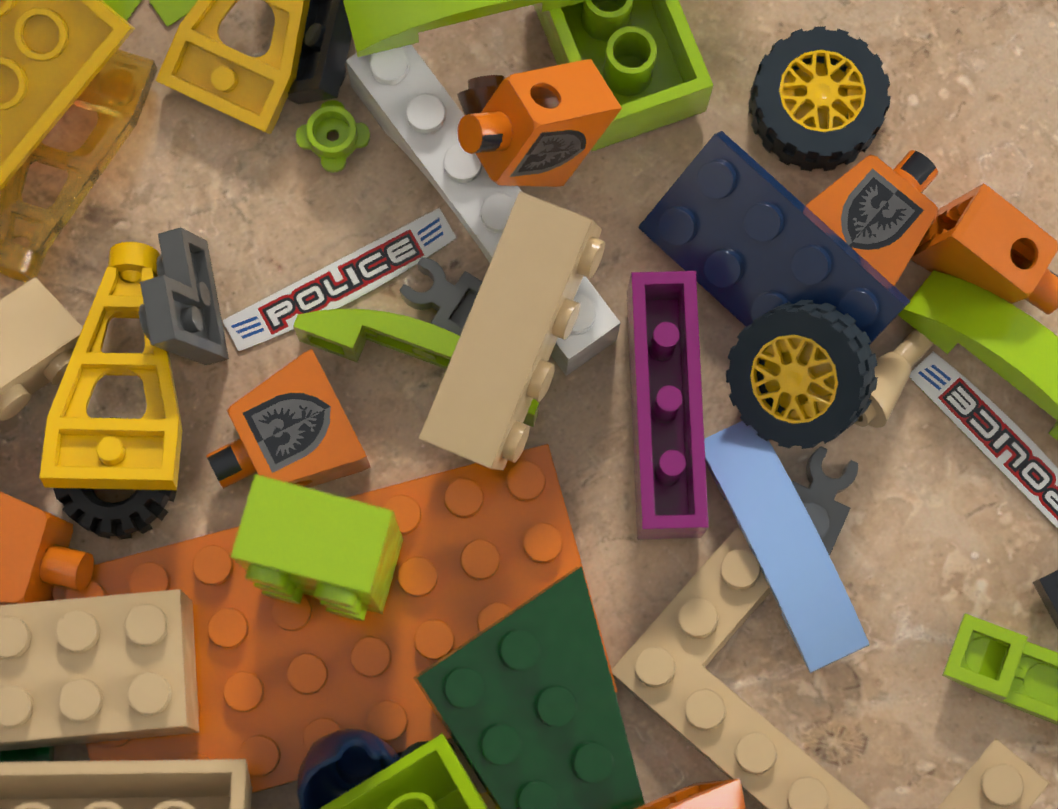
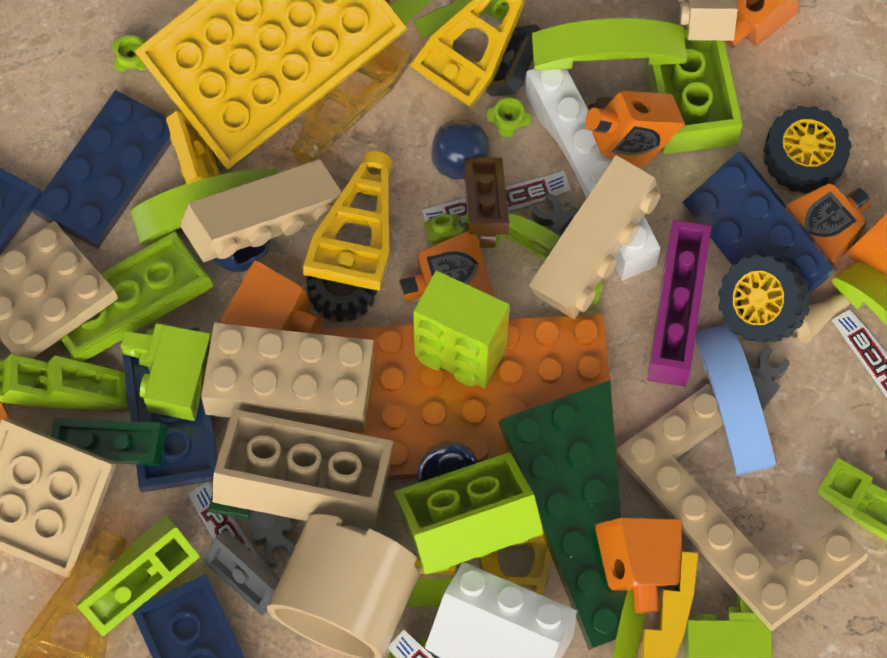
camera: 15 degrees right, 10 degrees down
(183, 303) = (403, 190): dark grey plate -> none
(263, 351) = (443, 228): none -> lime plate
(264, 207) = (457, 141): none -> dark blue hair
(320, 296) = (486, 199): none -> reddish brown plate

